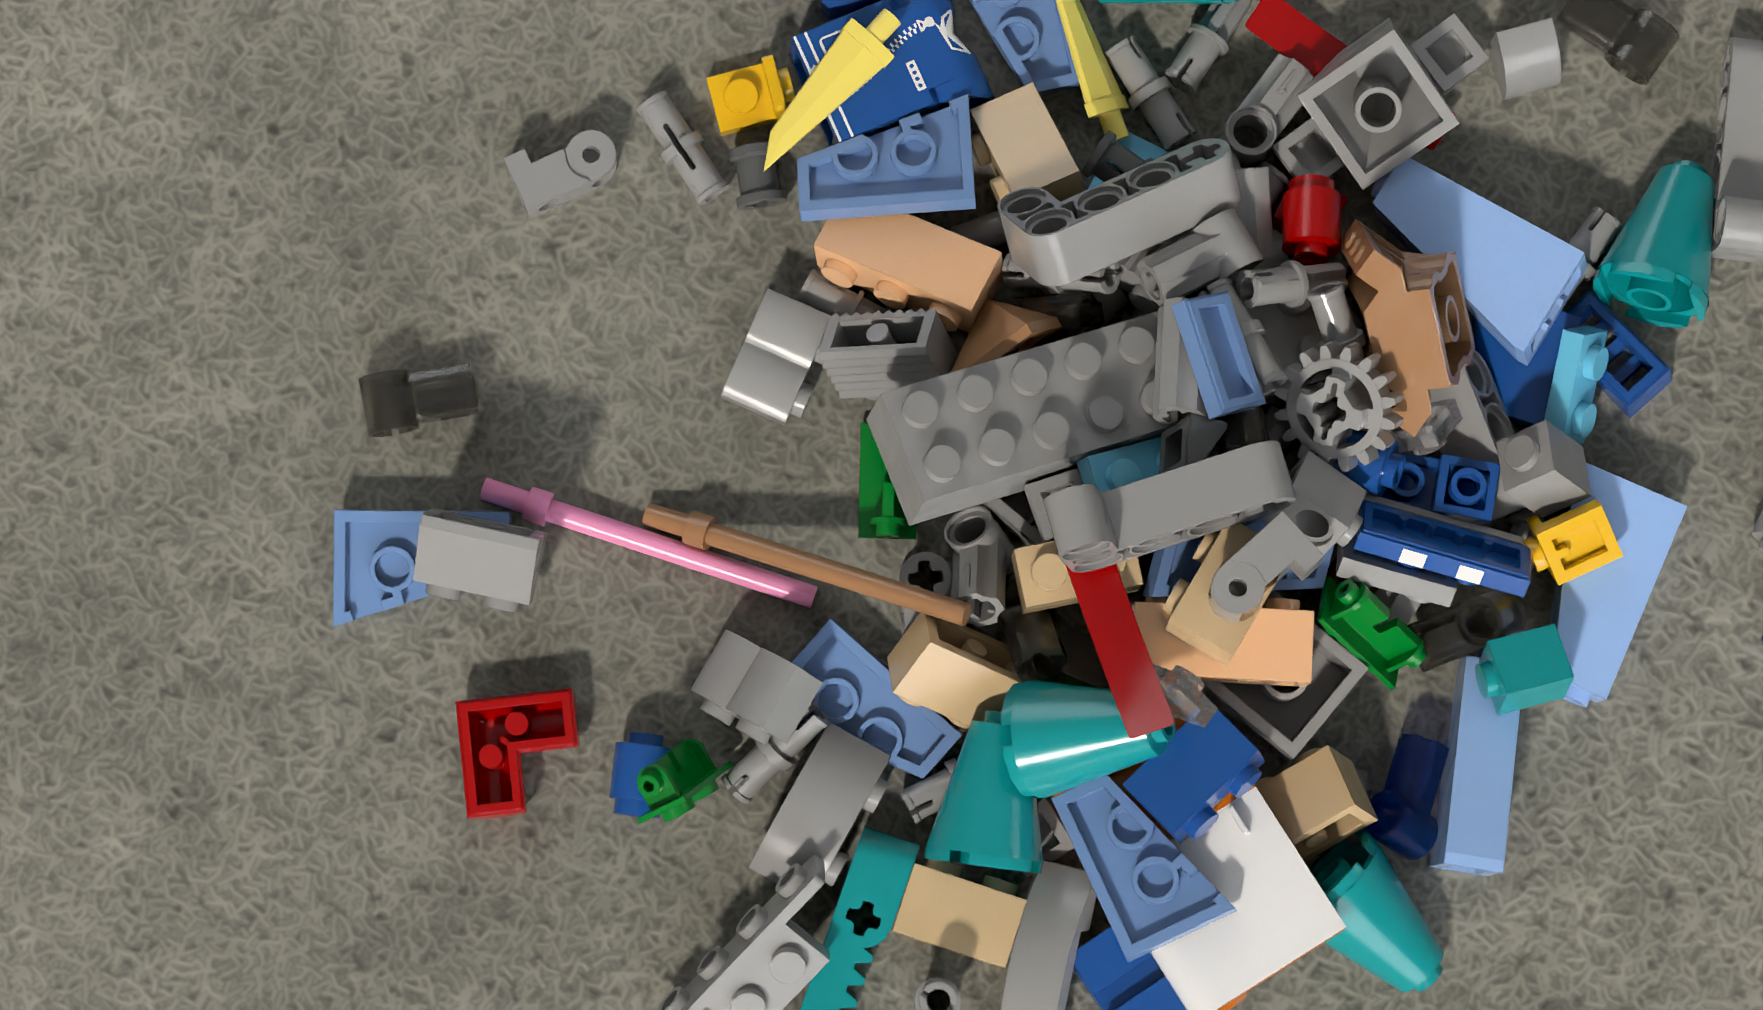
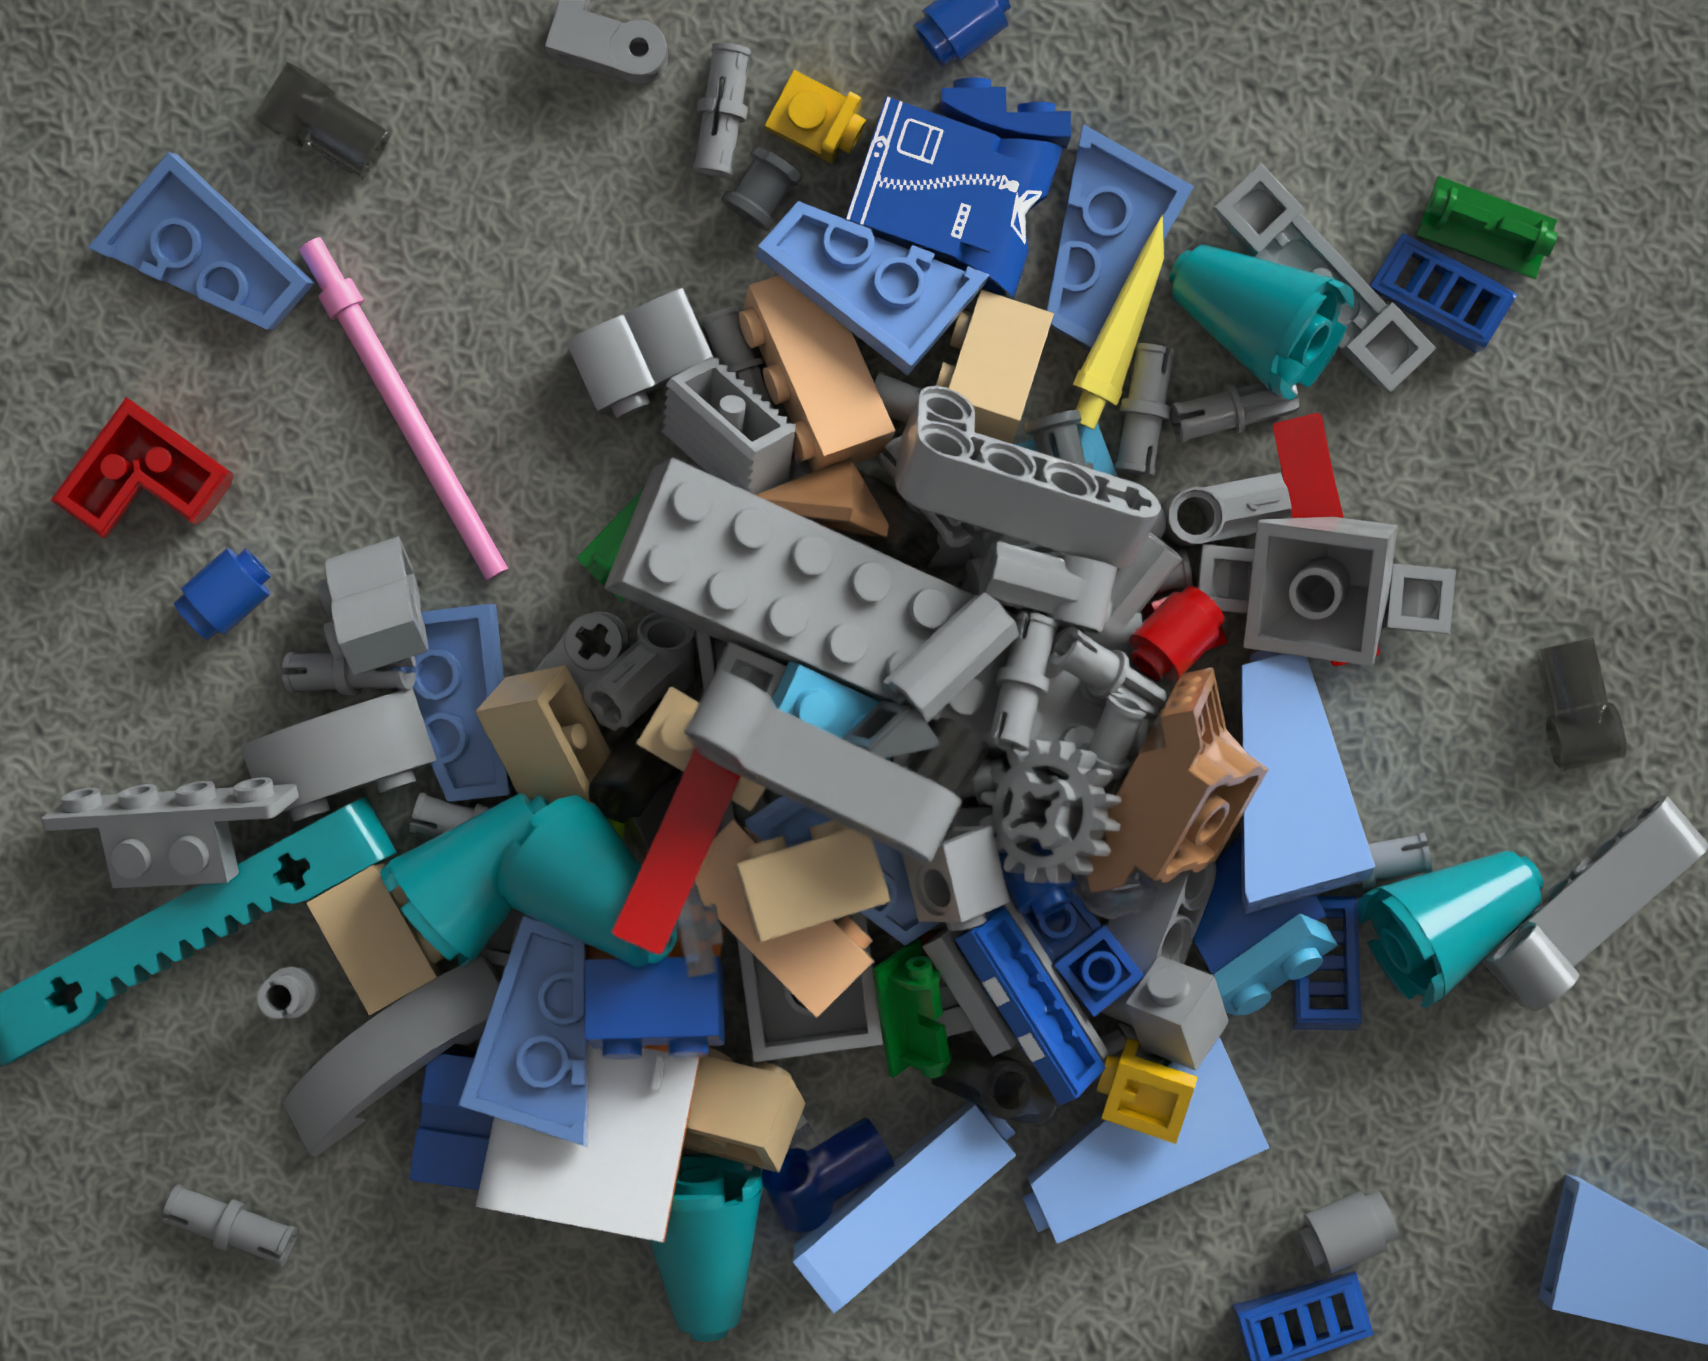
camera: 45 degrees right, 5 degrees up
(478, 558) = (243, 294): light grey slope -> none
(678, 780) = (243, 622): green hinge -> none
(704, 531) = (454, 442): medium nougat bar -> none
(845, 68) = (897, 162): light yellow bar -> none
(1218, 354) = (983, 679): medium blue tile -> none
(1258, 565) = (827, 888): light grey leg -> none
(1524, 669) = (1007, 1162): teal brick -> none
(1526, 58) = (1480, 660): light grey brick -> none

